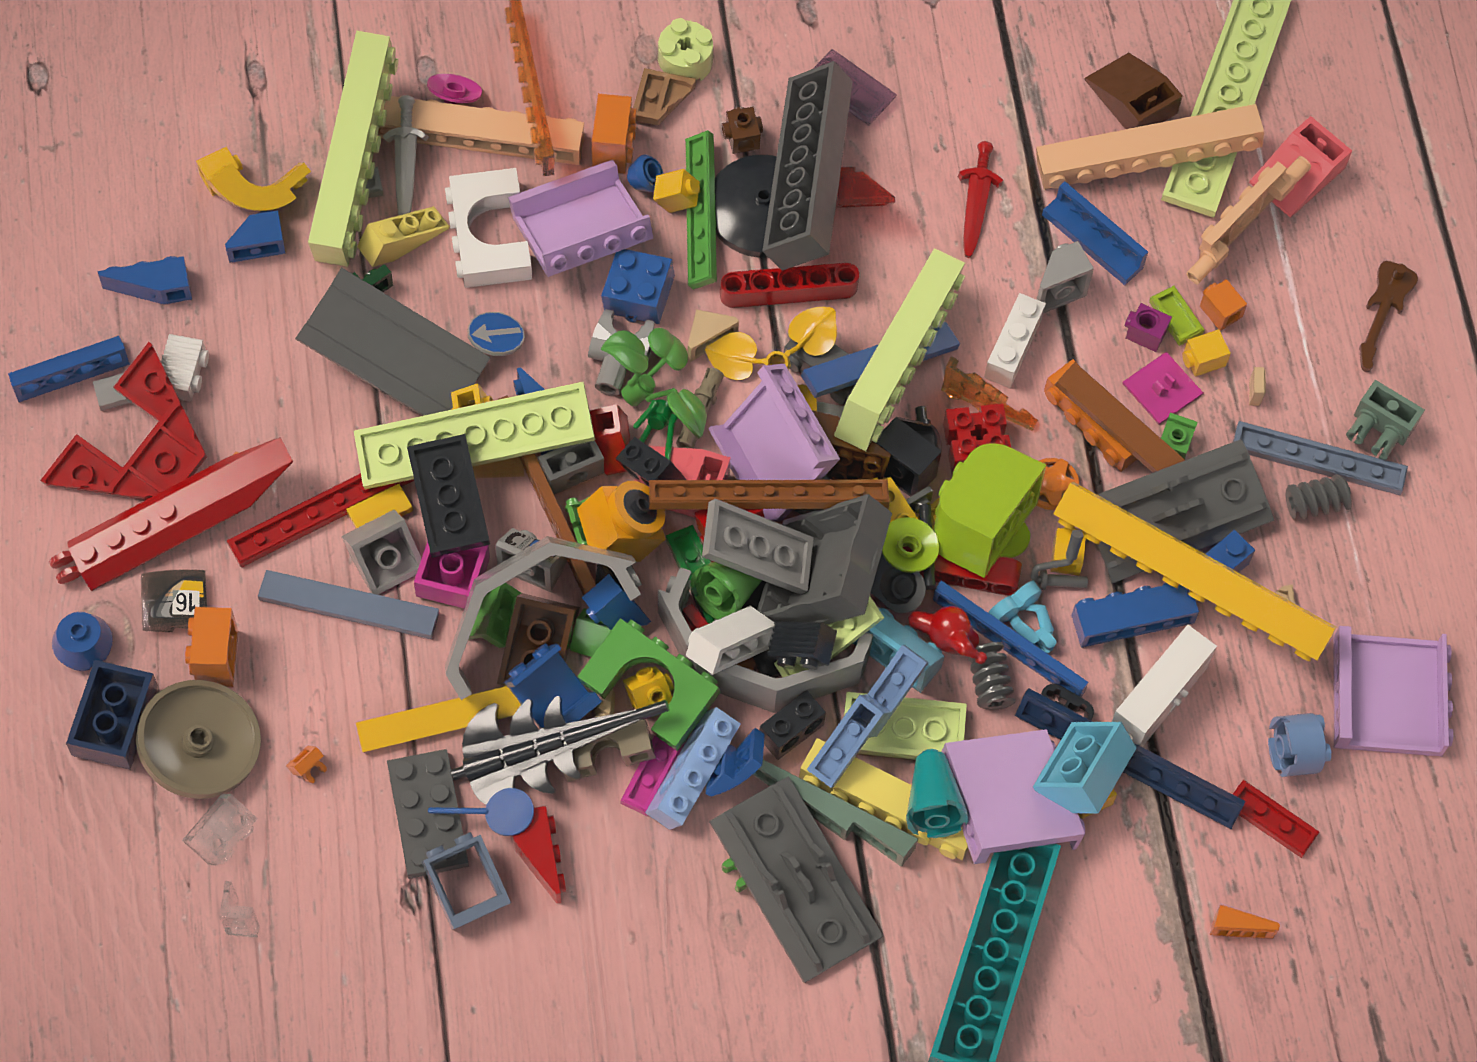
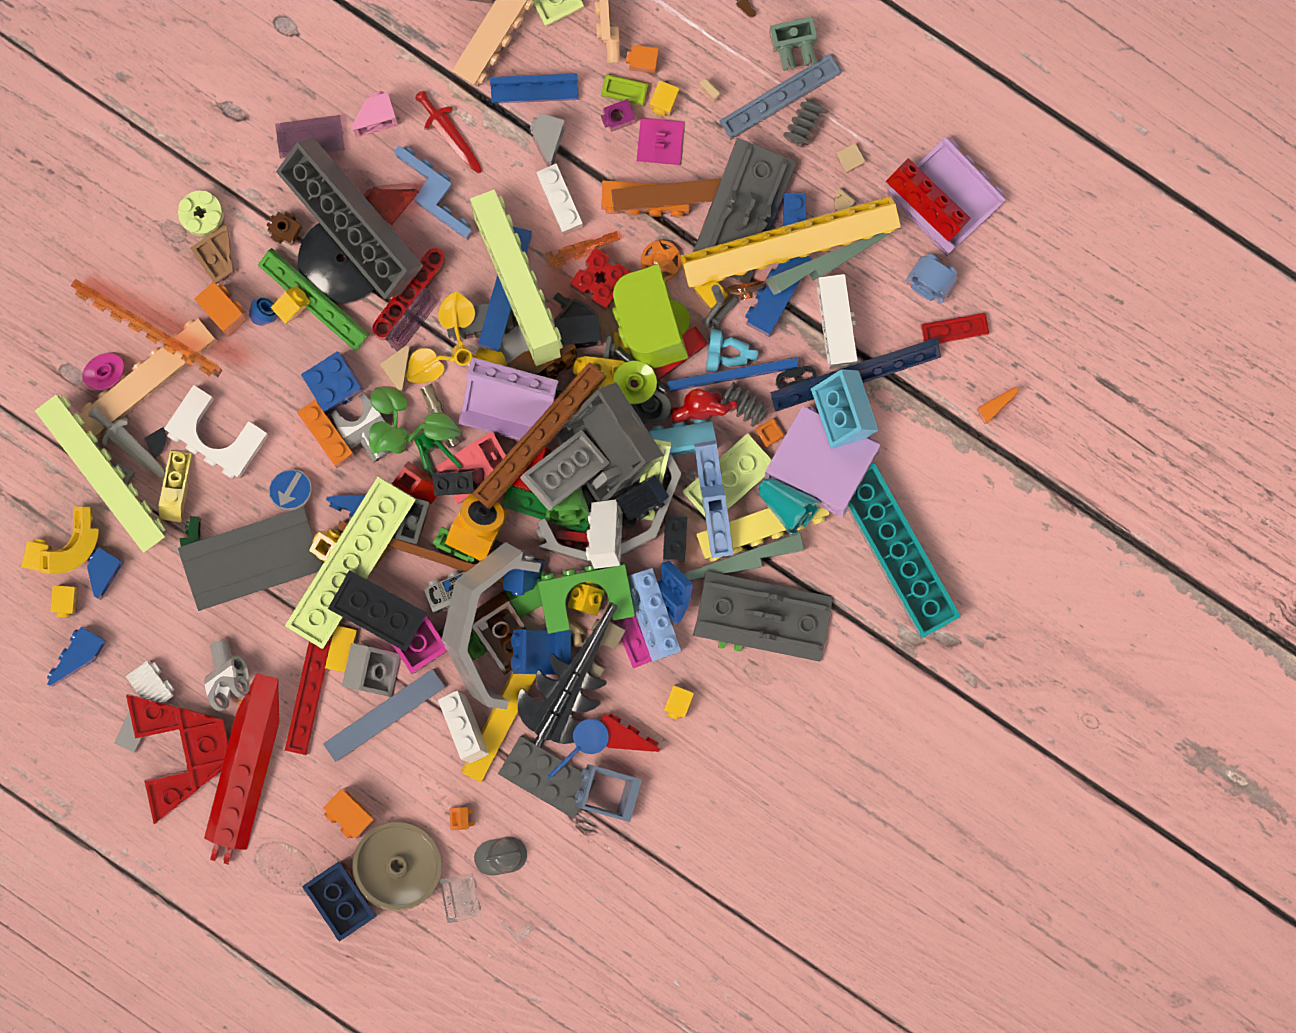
camera: 50 degrees left, 20 degrees up
(68, 368) = (91, 749): blue fence -> none
(81, 640) = (276, 880): blue cone -> none
(171, 598) = (296, 809): slope -> none
(197, 227) = (64, 601): none -> yellow brick
(257, 421) = (227, 674): none -> light grey connector
(302, 839) = (500, 856): none -> dark grey piece
(404, 680) = (463, 727): none -> white brick
(431, 187) = (157, 441): none -> black tile
(579, 218) = (261, 378): lavender panel -> none
(581, 320) = (325, 433): none -> orange brick
(626, 874) = (678, 703): none -> yellow brick
(766, 304) = (411, 319): none -> piece
(786, 596) = (607, 477): none -> light grey tile
(908, 228) = (433, 191): none -> medium blue bracket
(925, 116) = (375, 115): none -> bright pink slope
(988, 725) = (769, 432): none -> orange tile
(1105, 574) = (745, 290): none -> clear orange dish
(1179, 433) = (699, 158): bright green brick -> none
(1215, 627) = (820, 266): none -> sand green slope
(1331, 571) = (850, 158): none -> tan tile
(1370, 671) = (928, 199): none -> red brick

